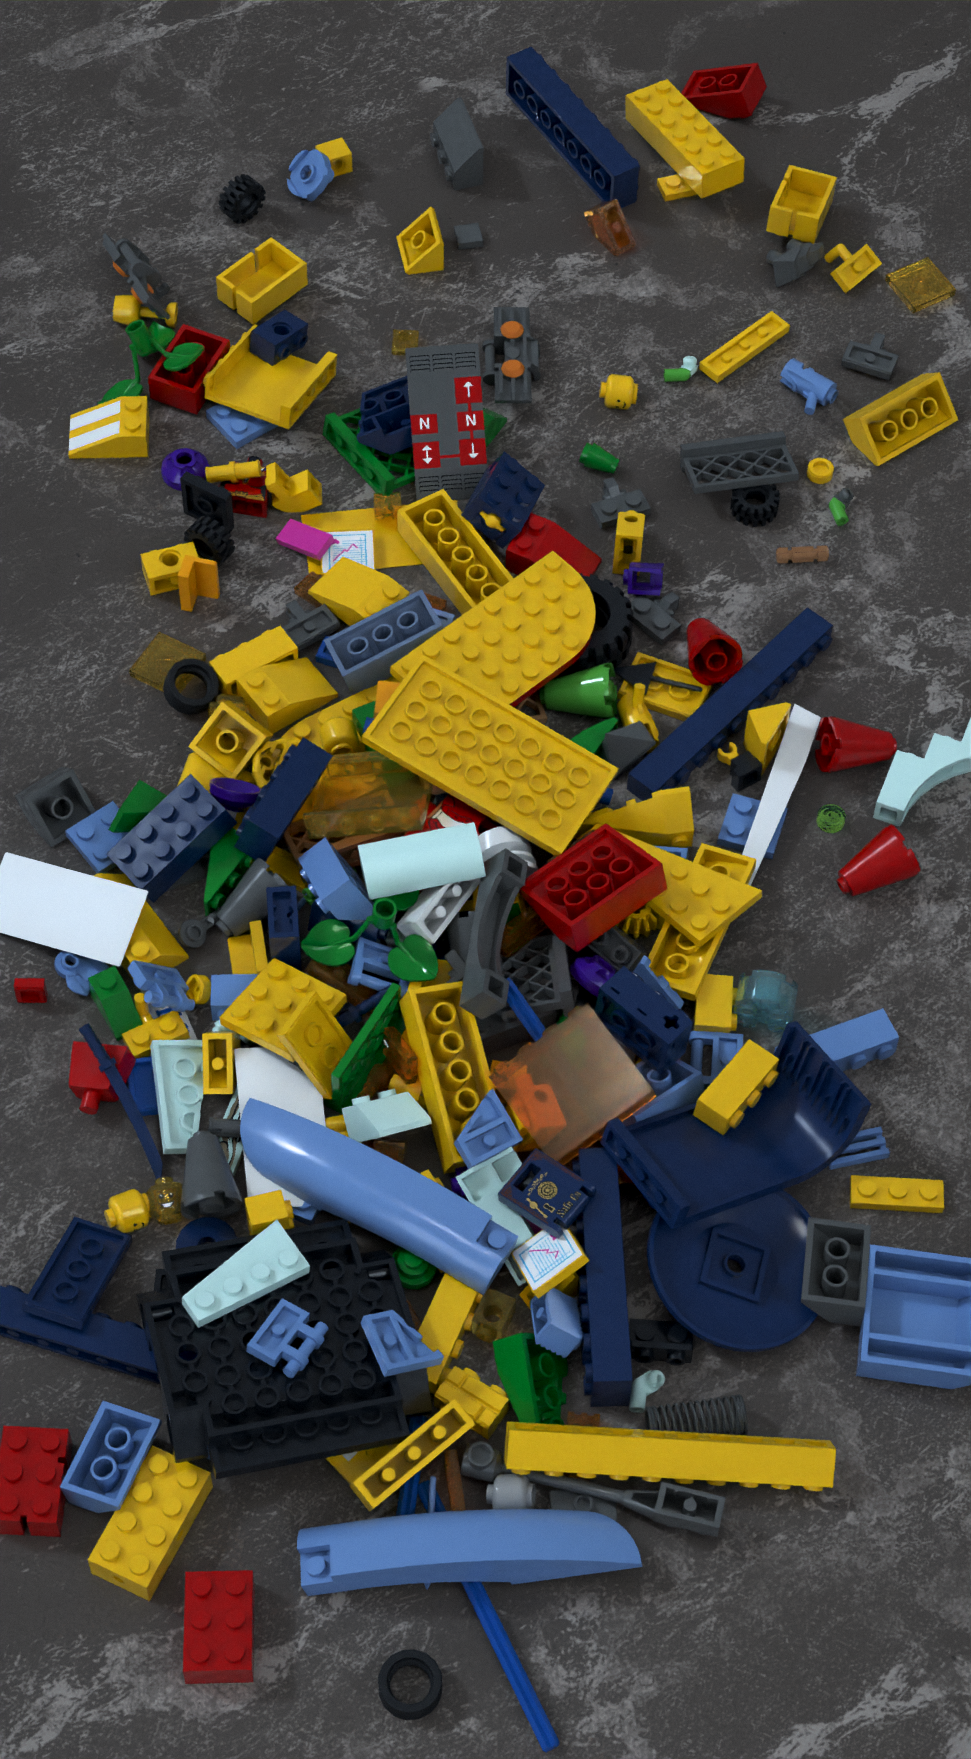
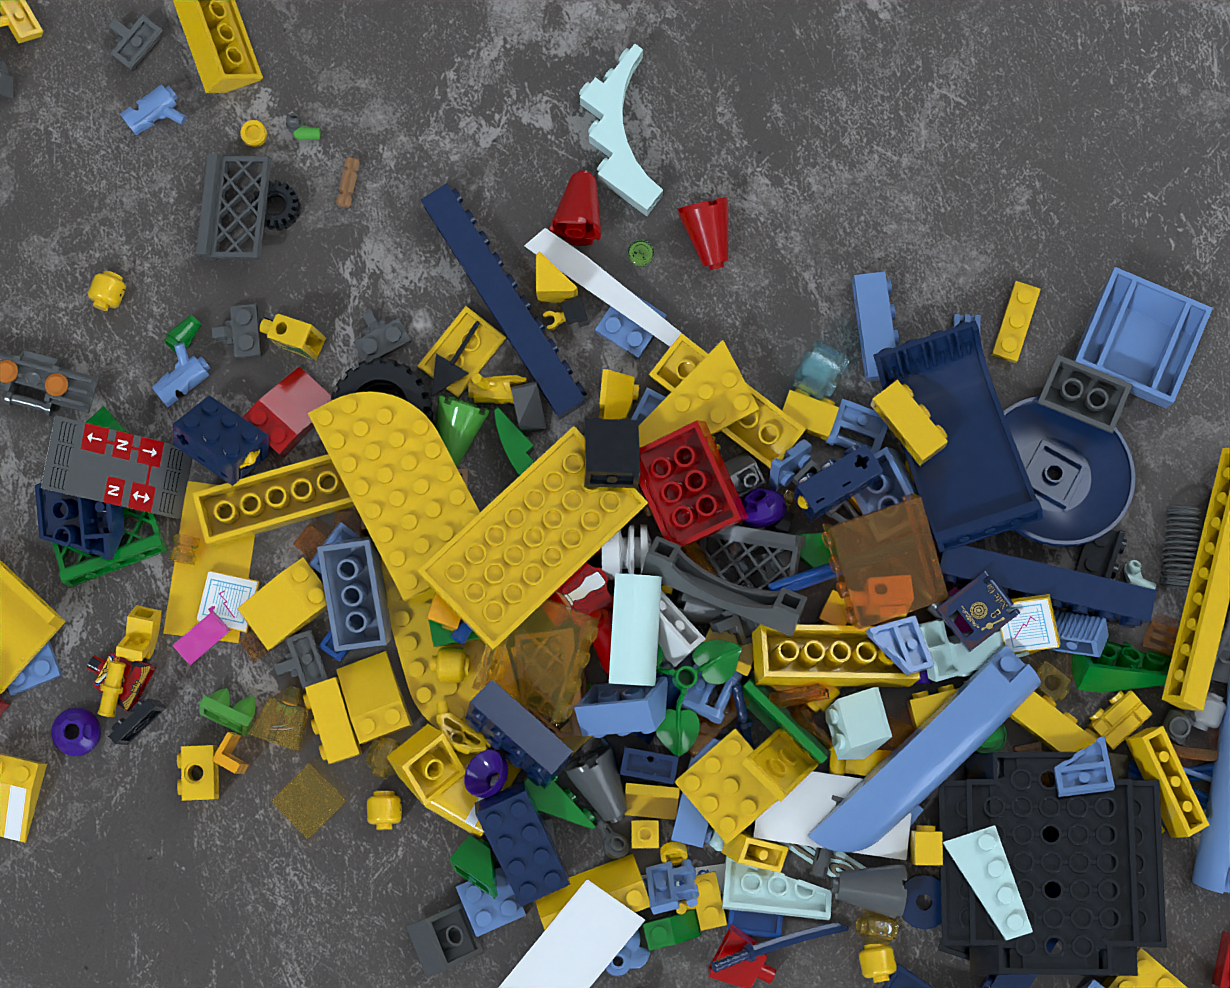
camera: 70 degrees left, 25 degrees up
(175, 724) = (384, 809): none -> yellow head
(202, 671) = (368, 788): black tyre -> none
(210, 540) = (183, 730): black tyre -> none
(211, 954) = (645, 833): none -> yellow brick
(233, 585) = (237, 718): none -> bright green tile
(240, 620) = (282, 720): none -> clear yellow torso
(279, 1332) = (1057, 866): medium blue plate -> none
(557, 469) = (186, 376): none -> medium blue piece
(601, 803) = (611, 453): none -> black panel
(653, 587) = (341, 335): dark purple window -> none
(684, 372) = (97, 221): bright green arm -> none
(712, 653) = (443, 301): red cone -> none
(744, 347) = (84, 154): yellow plate -> none

